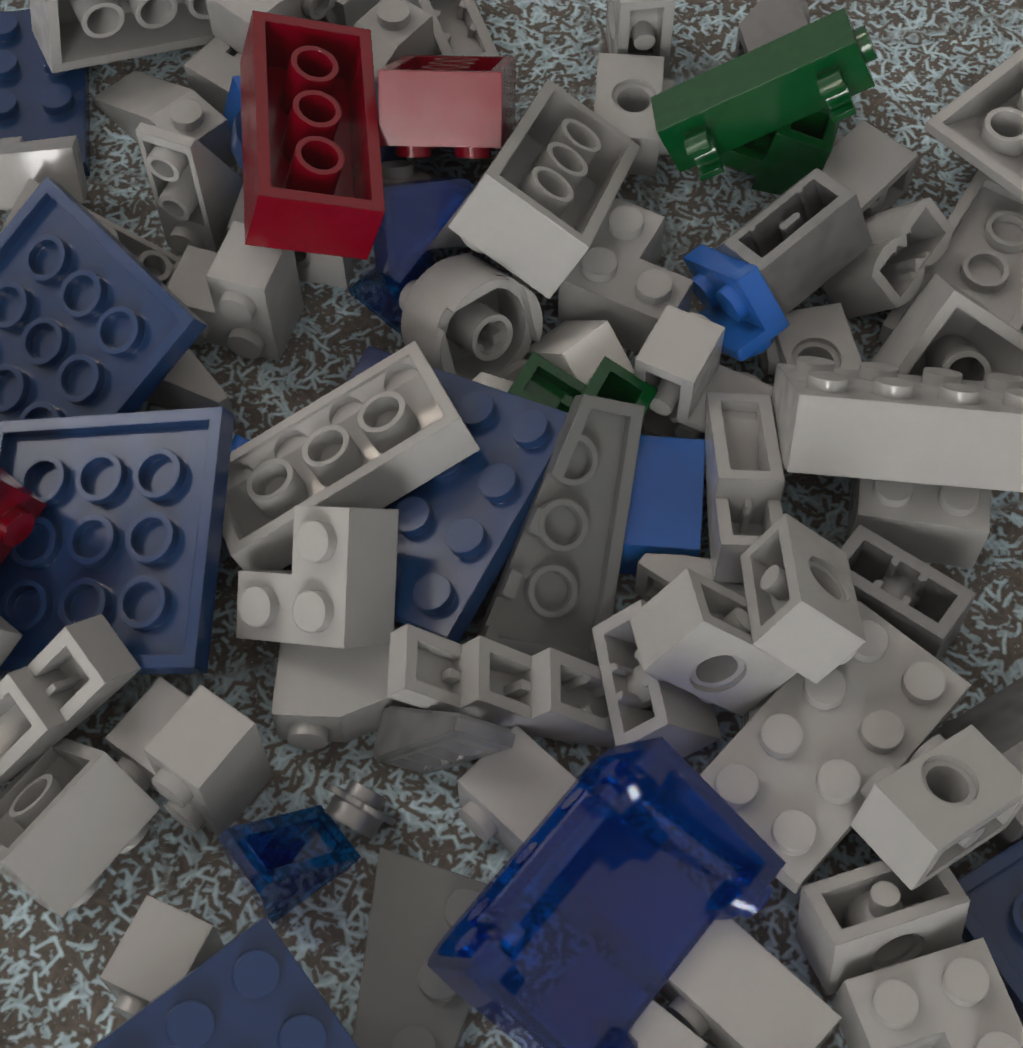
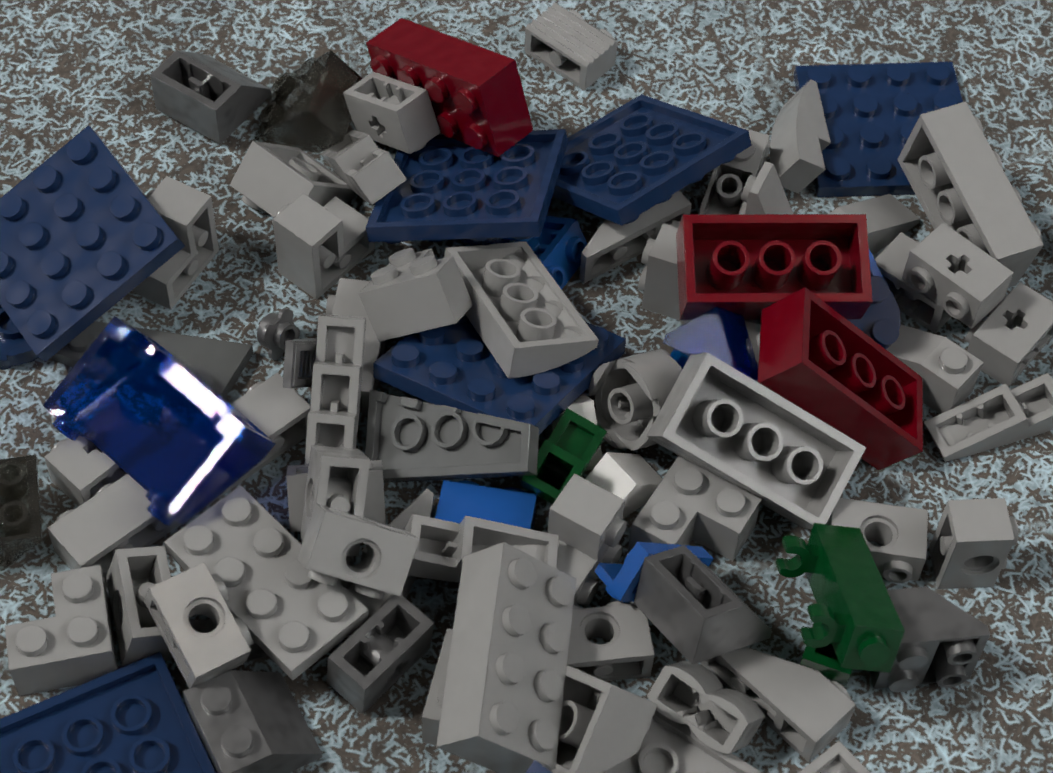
camera: 90 degrees right, 5 degrees down
(287, 857) = (246, 288): clear blue slope -> none

